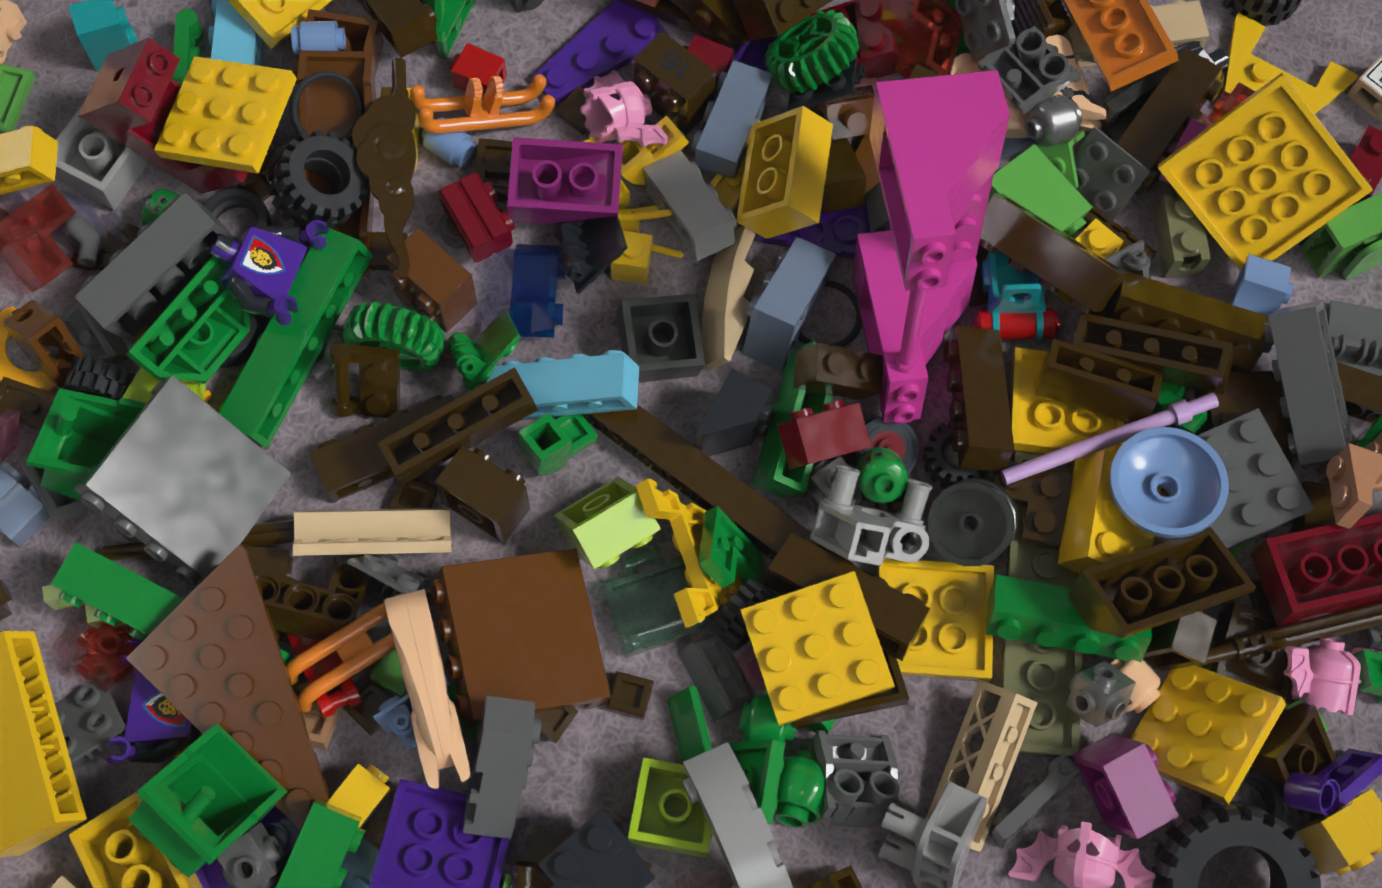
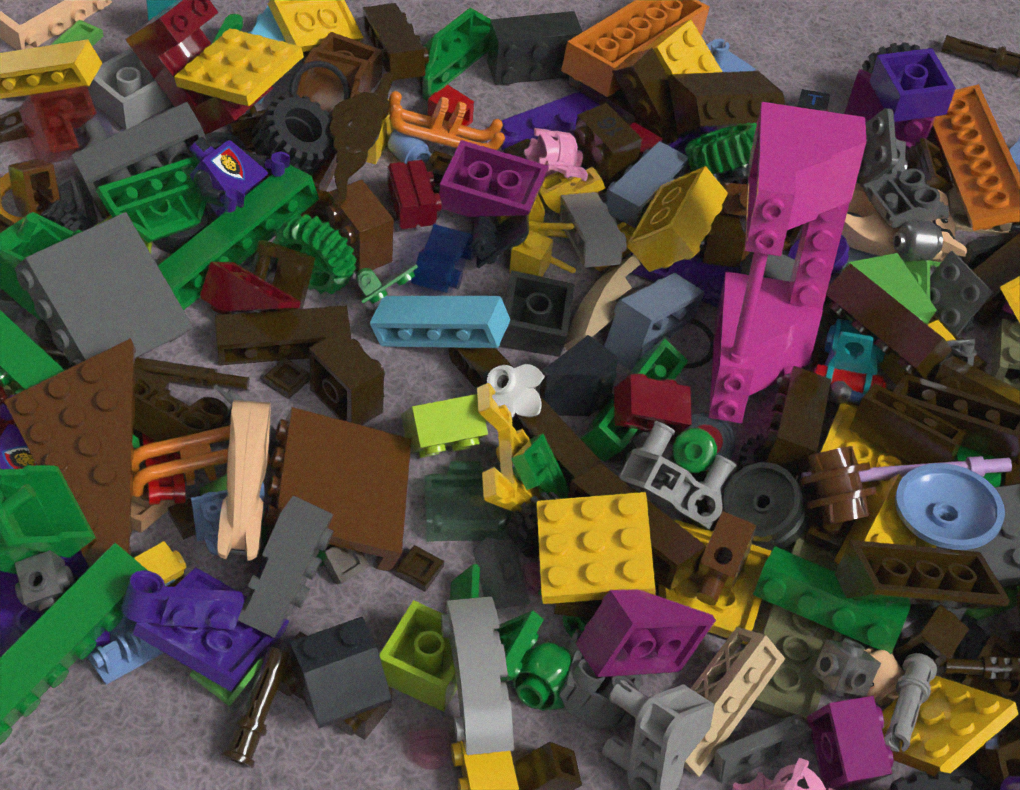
camera: 15 degrees right, 20 degrees down
(318, 36) = (331, 41): medium blue brick -> none
(332, 412) = (236, 289): none -> dark red slope
(371, 531) = (205, 372): tan fence -> none
(408, 854) = (153, 602): none -> dark purple plate
(458, 423) = (356, 311): dark brown brick -> none
(552, 442) = (418, 362): green brick -> none
(676, 457) = (520, 391): none -> white plate
(760, 722) = (532, 600): green head -> none
(838, 371) = (679, 358): dark brown brick -> none
(884, 729) = (641, 634): none -> magenta slope
(949, 590) = (724, 558): none -> reddish brown torso
(1015, 343) = (841, 393): none -> flat silver piece
(1048, 490) = (838, 485): none -> reddish brown piece
(1173, 702) = (912, 690): none -> light grey pin

